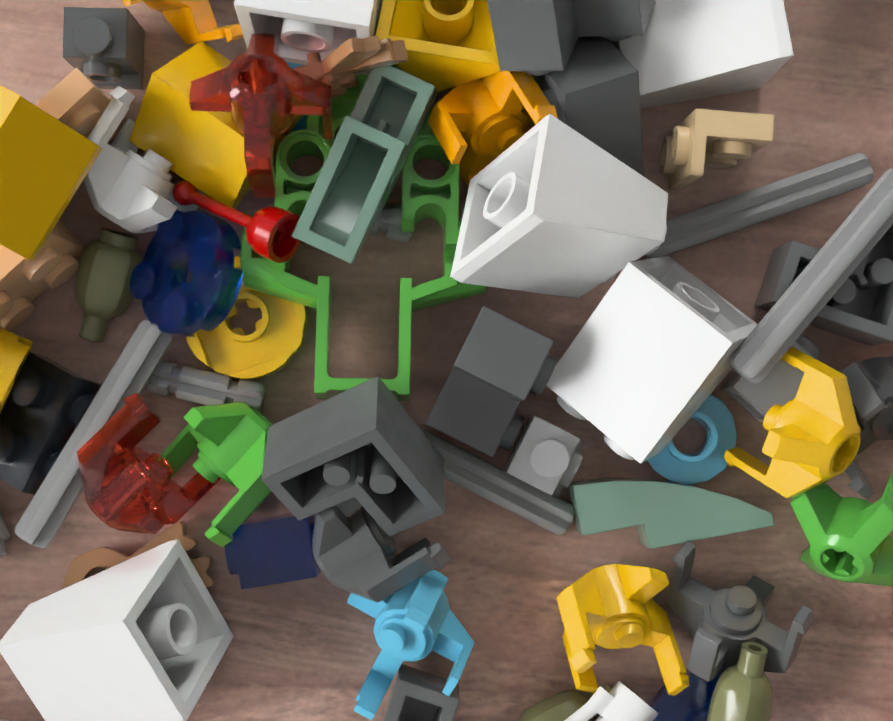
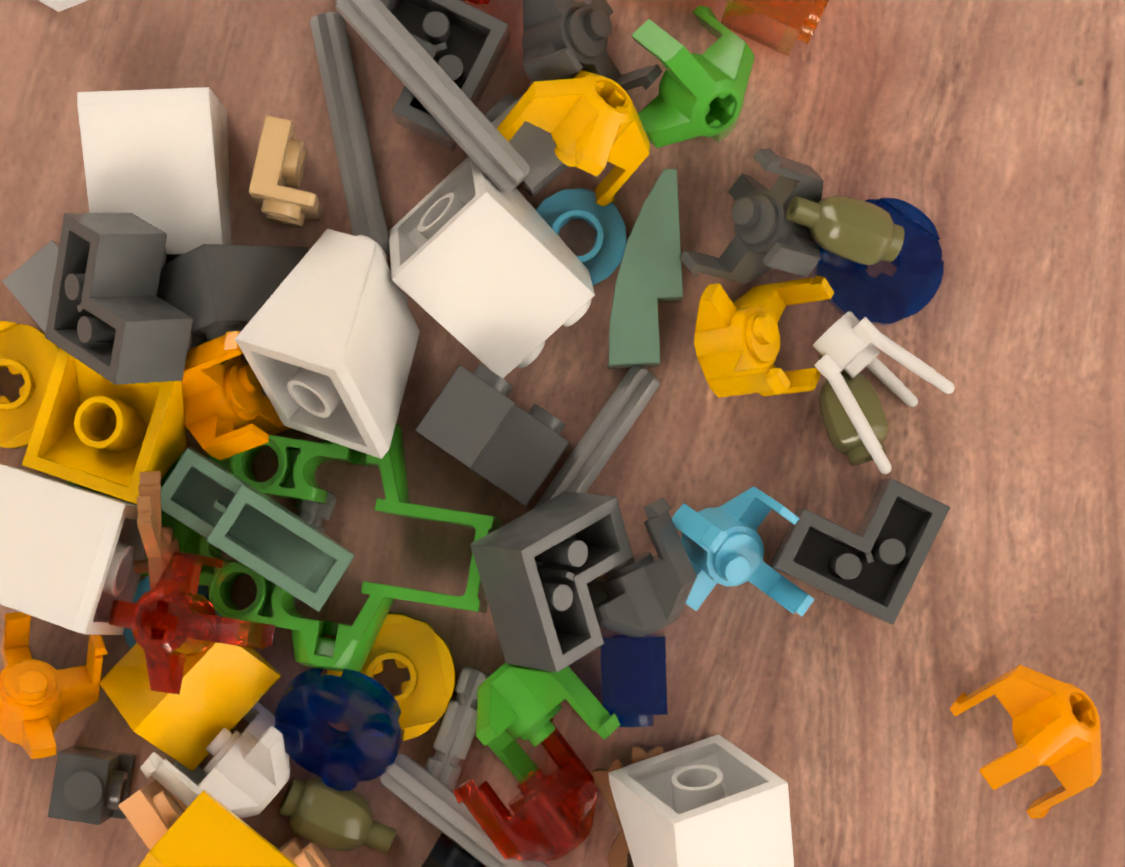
camera: 80 degrees left, 0 degrees up
(259, 228) = (309, 636): red hinge -> none
(545, 456) = (576, 387): light grey brick -> none

